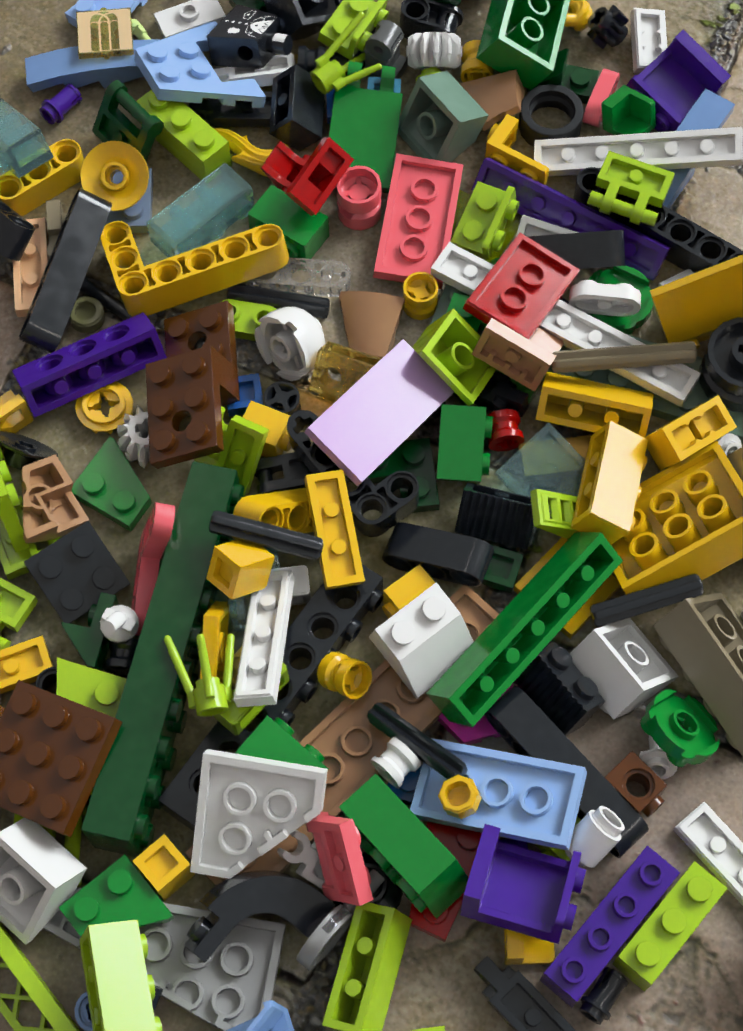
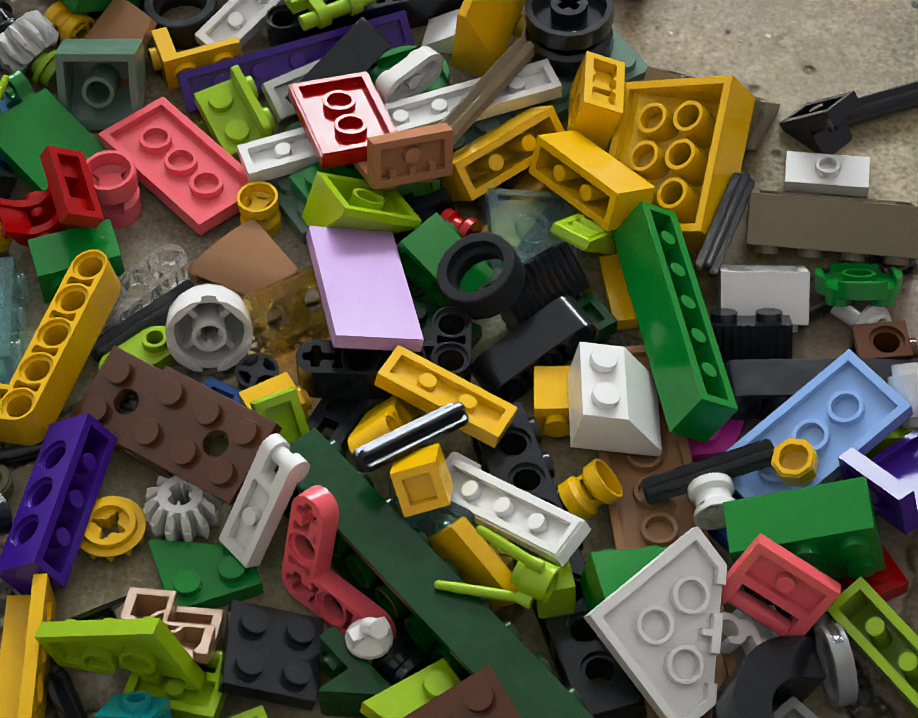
camera: 50 degrees left, 15 degrees down
(164, 481) = (262, 500): none -> white plate
(446, 454) = (469, 252): none -> black tyre

